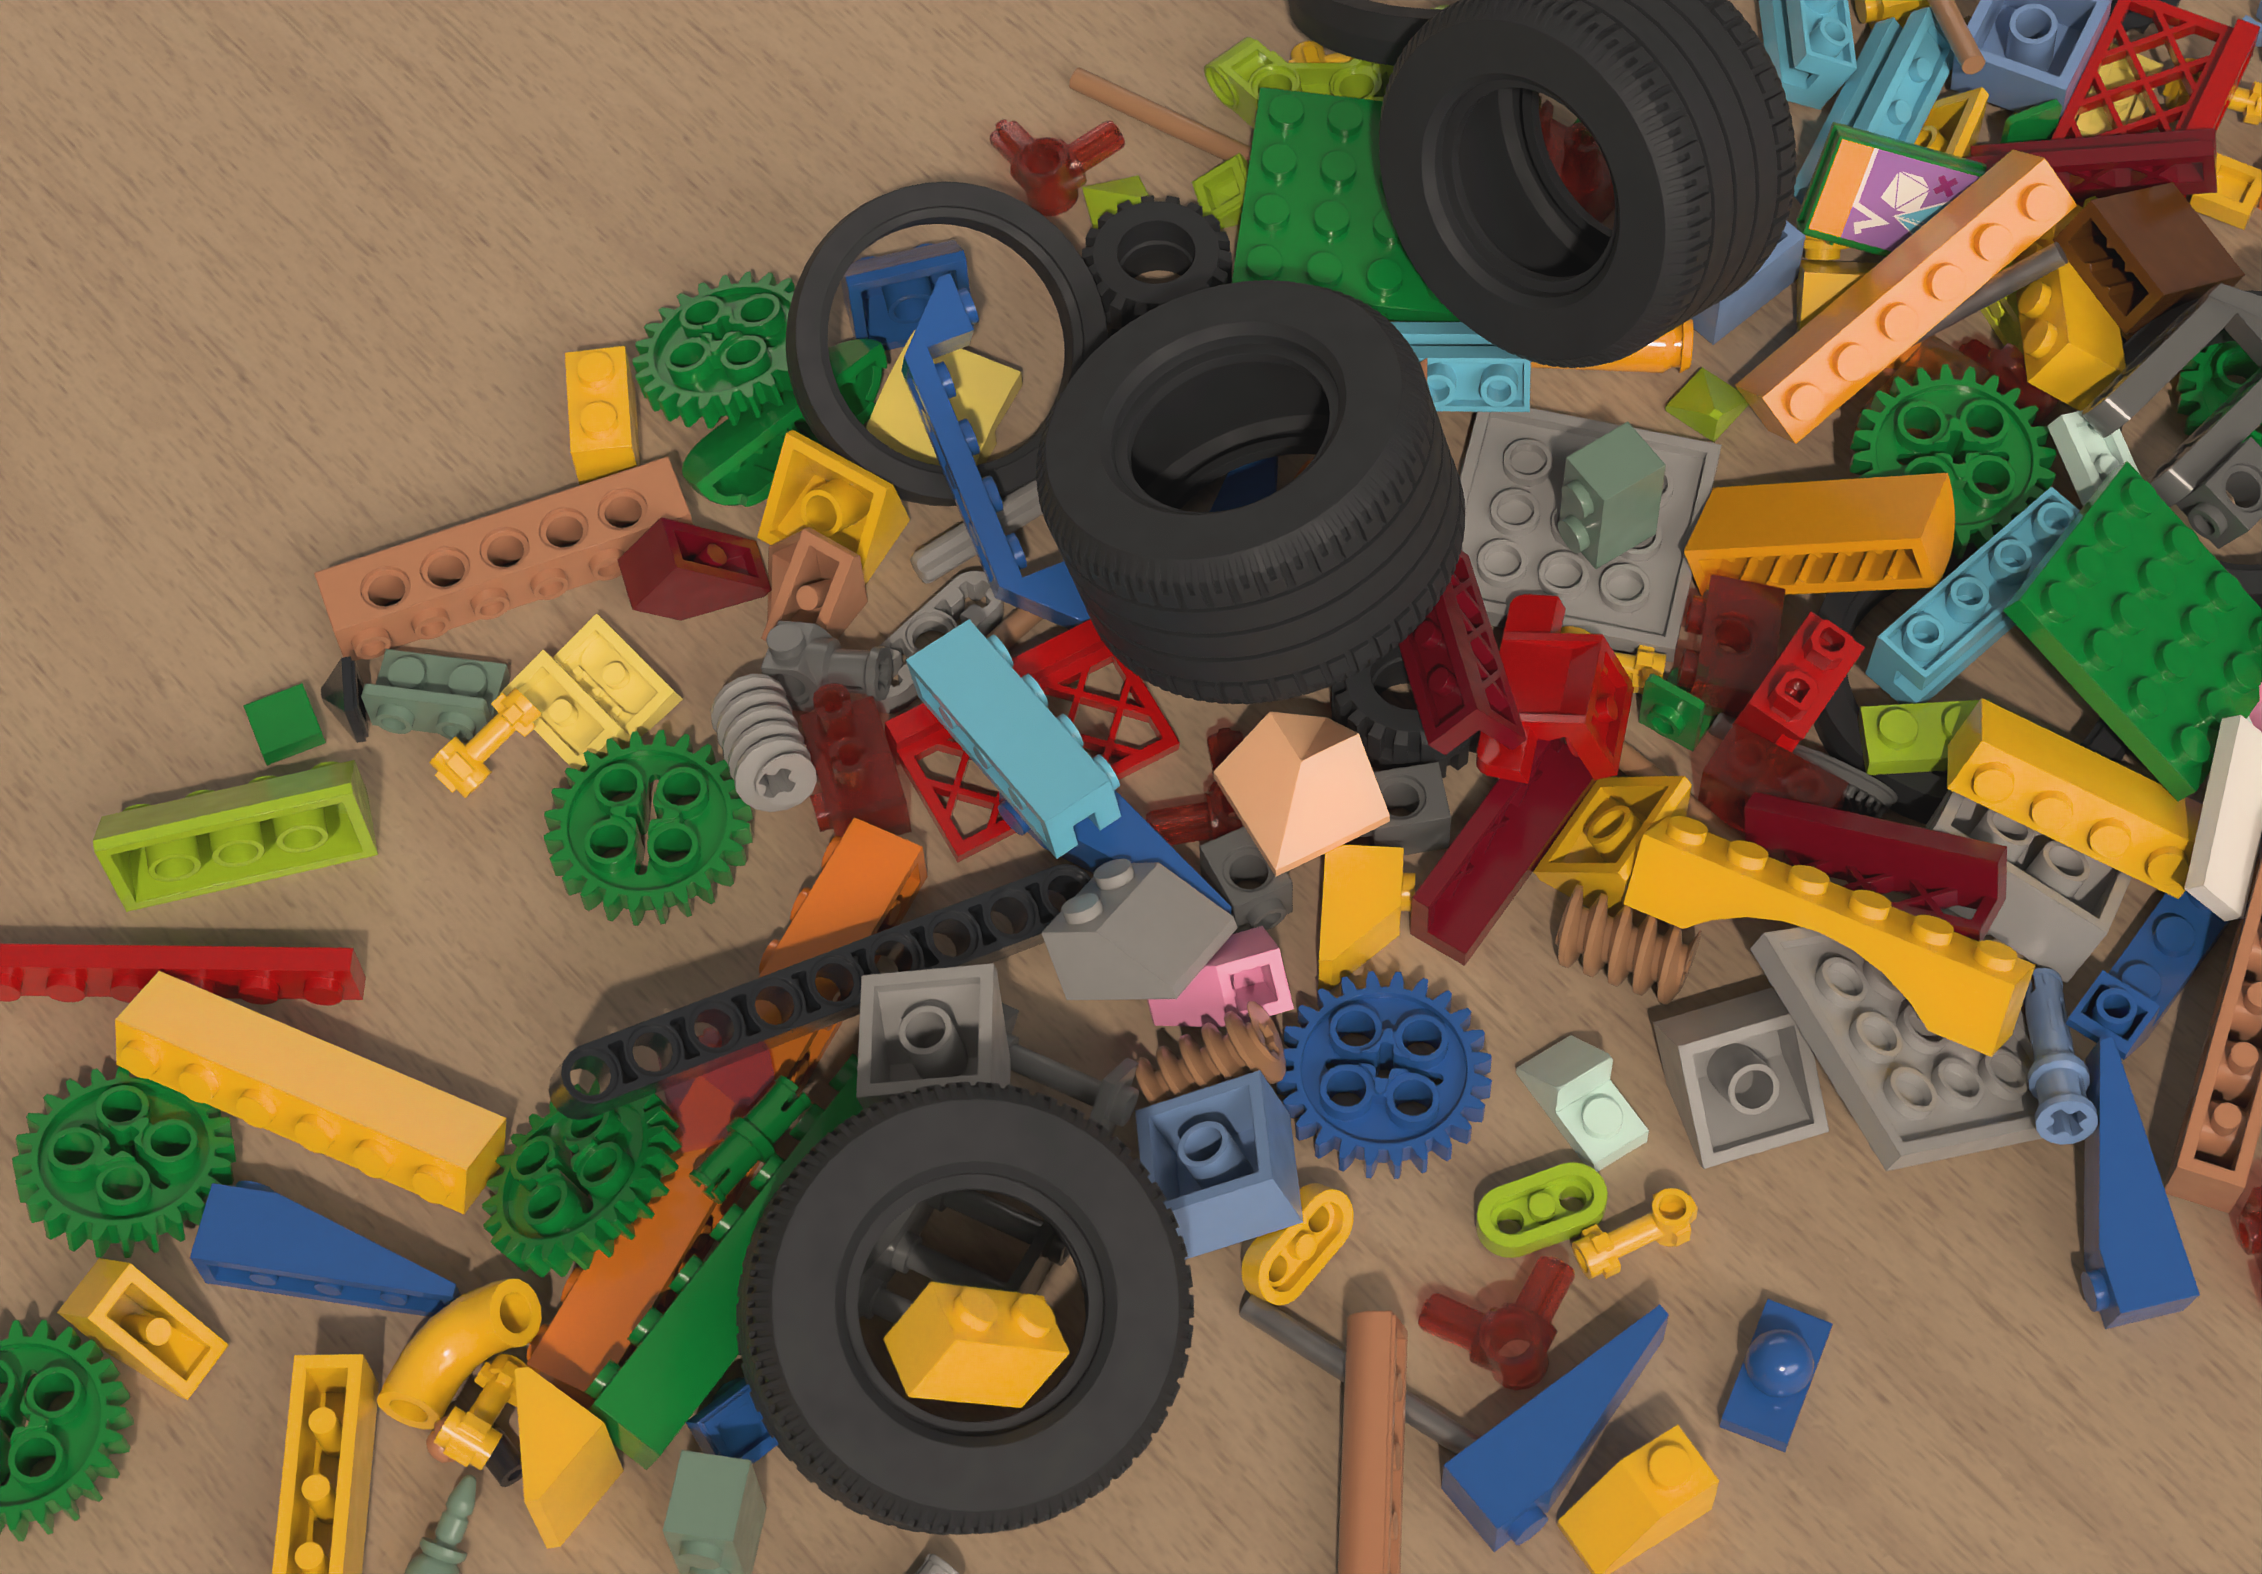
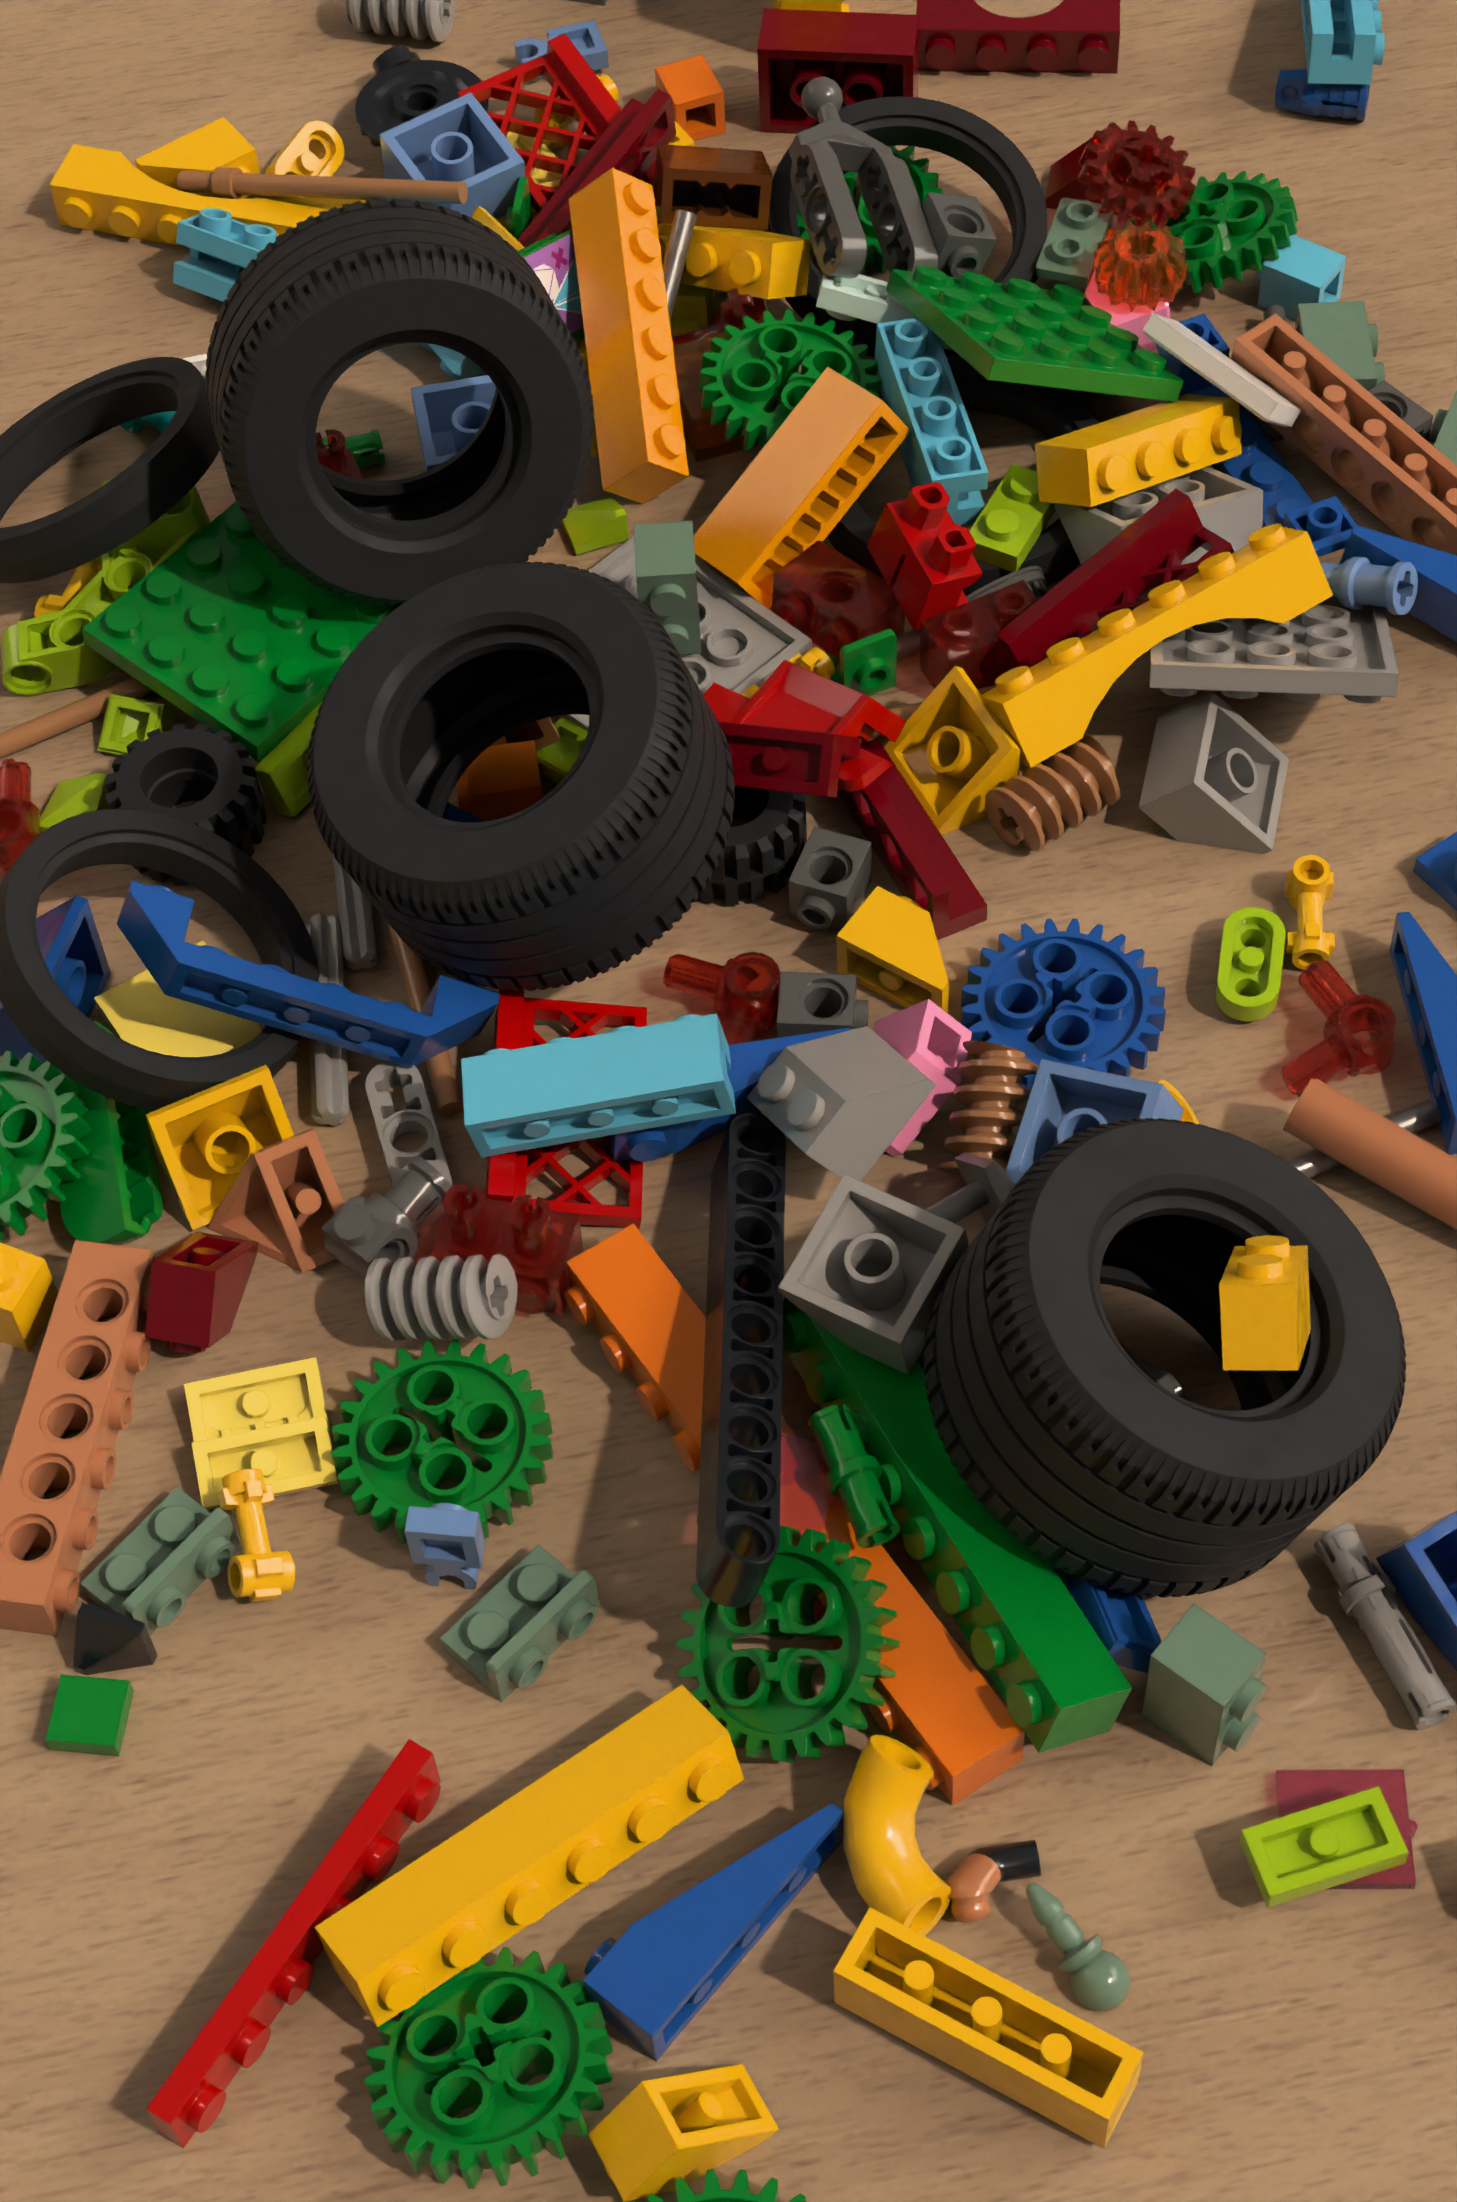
camera: 60 degrees left, 5 degrees down
(236, 835) = (193, 1798): lime slope -> none
(470, 1434) = (986, 1863): yellow bar -> none
(523, 978) = (522, 1622): none -> sand green bracket
(542, 874) = (447, 1541): none -> medium blue plate
(563, 1457) = (1060, 1789): yellow slope -> none
(1301, 788) = (781, 919): light nougat slope -> none
(1582, 1102) = (1156, 895): light aqua slope -> none

